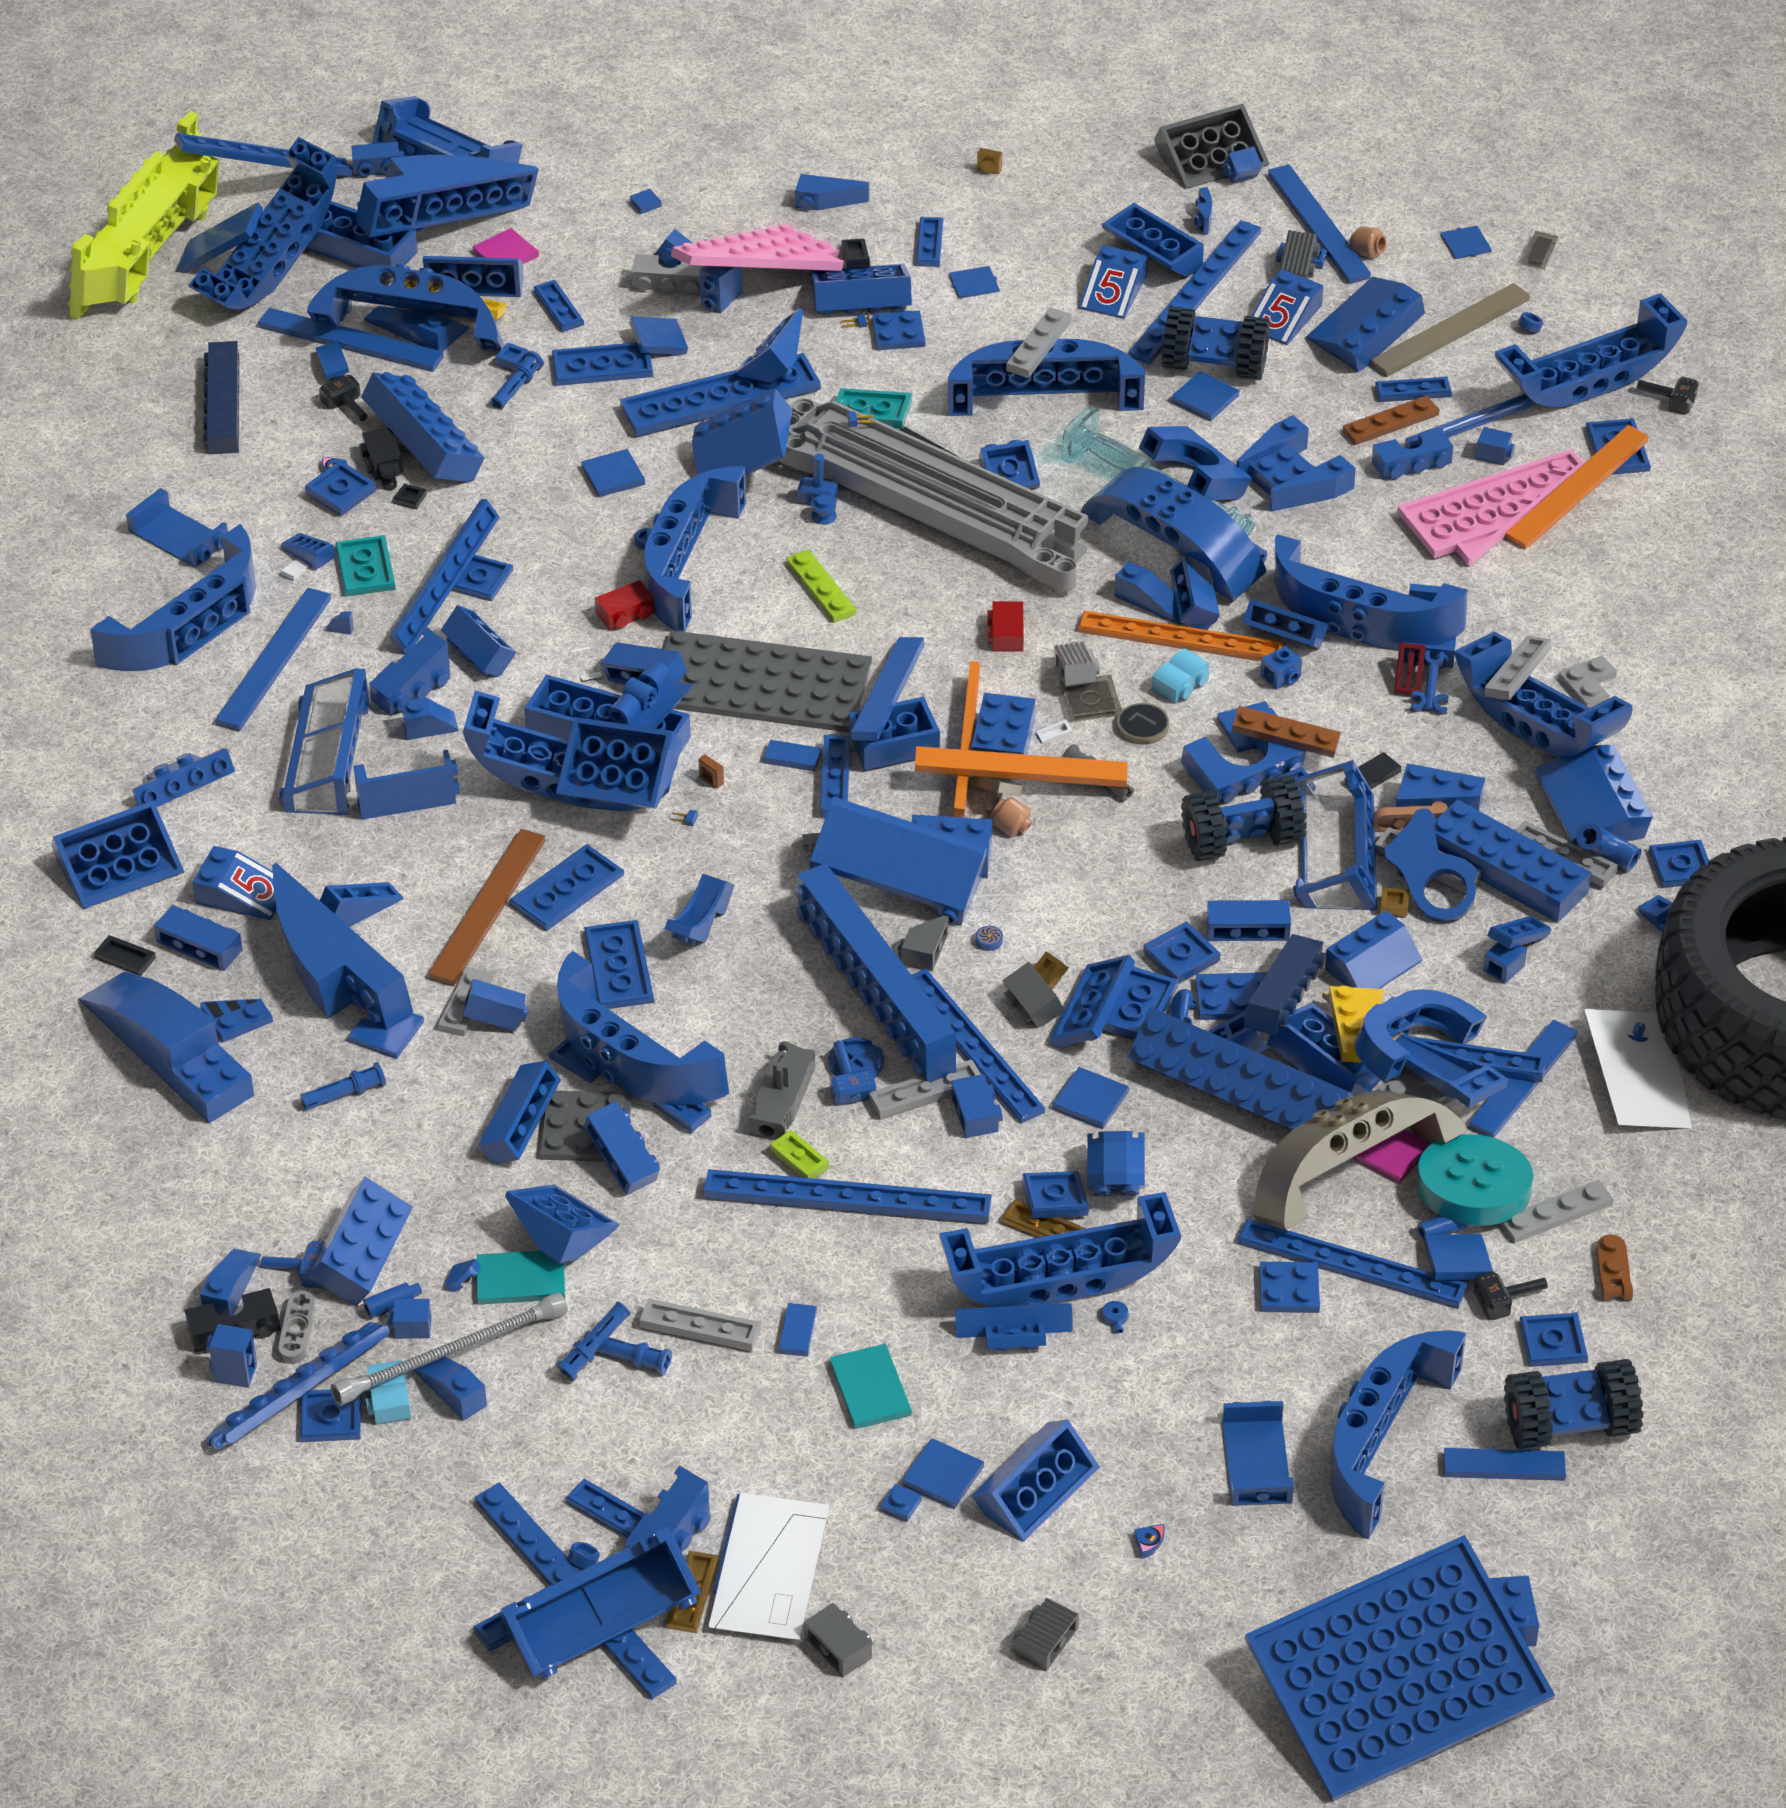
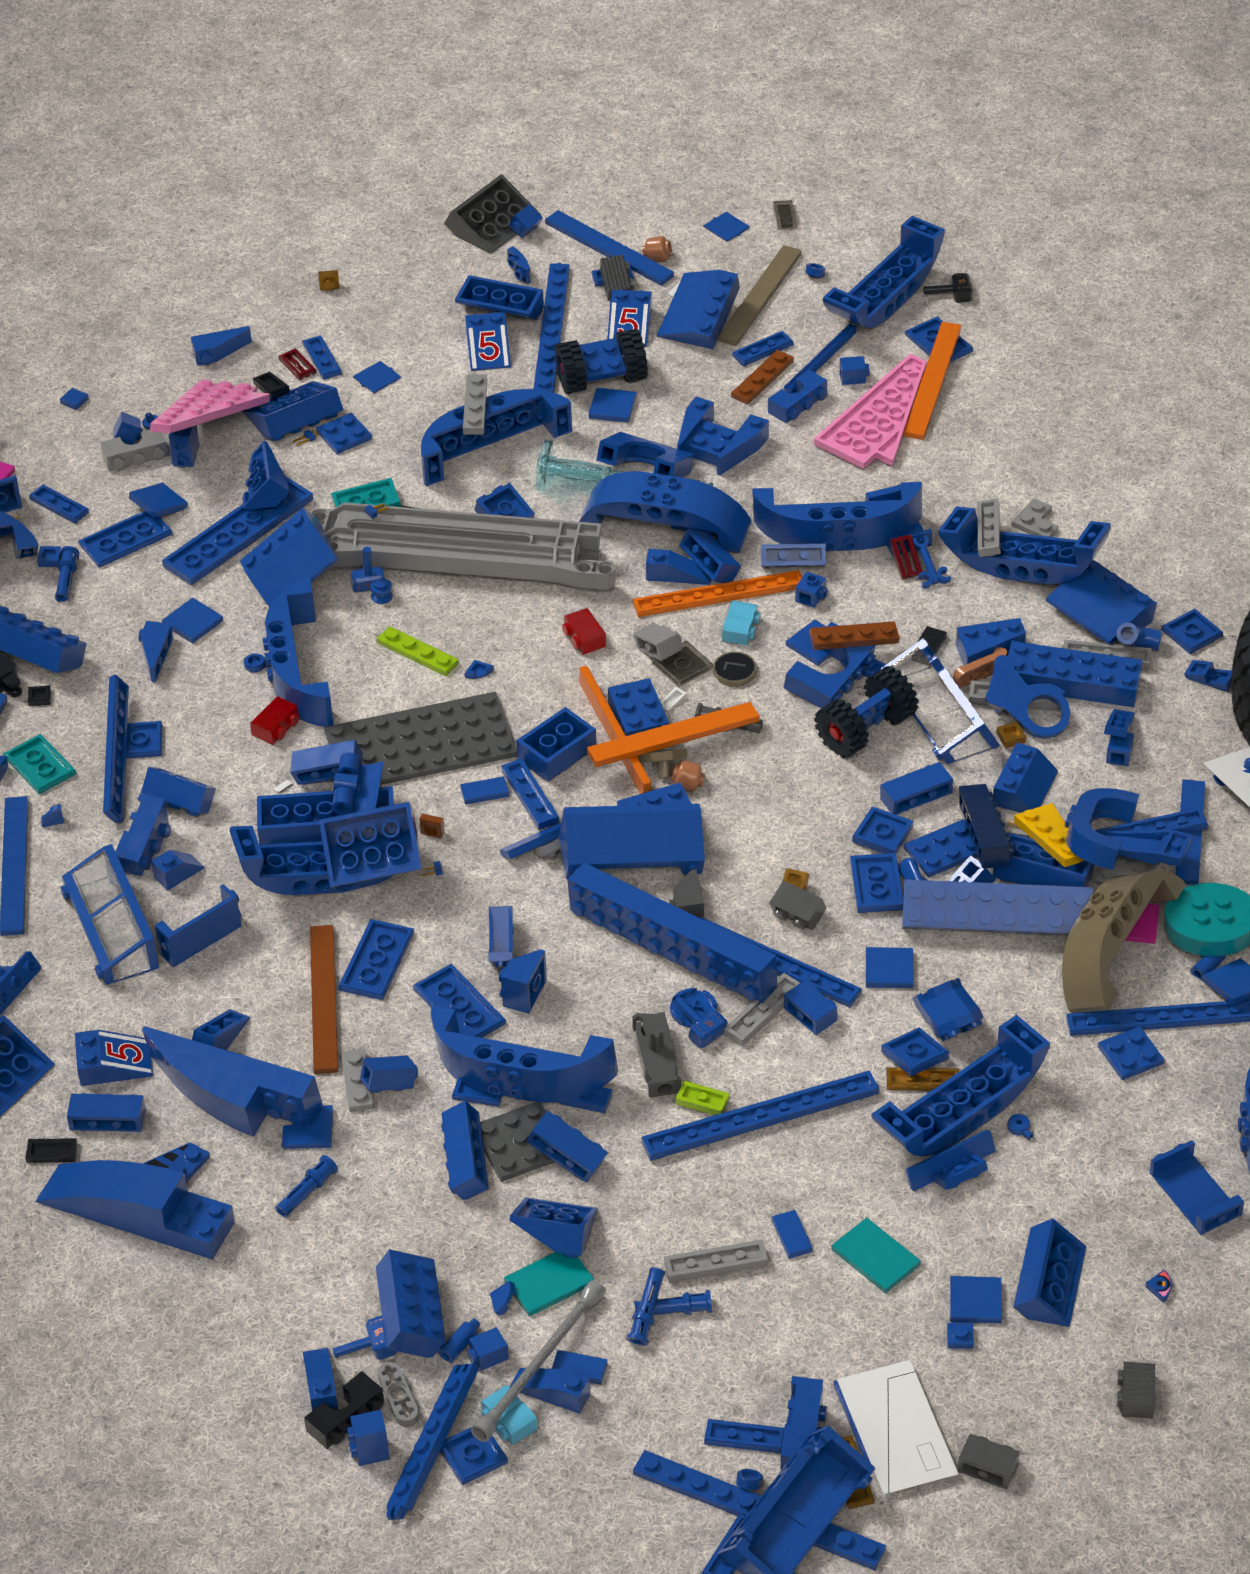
camera: 25 degrees left, 0 degrees up
(494, 1374) = (582, 1364): none -> blue tile
(555, 484) = (155, 641): none -> blue slope
(692, 963) = (523, 981): none -> blue slope
(794, 827) = (531, 842): none -> blue tile
(870, 627) = (478, 668): none -> blue tile
(887, 689) = (533, 711): blue tile -> none
(900, 252) = (288, 360): none -> dark red tile
(989, 938) = (731, 875): blue tile -> none
(1092, 1001) = (845, 893): blue plate -> none

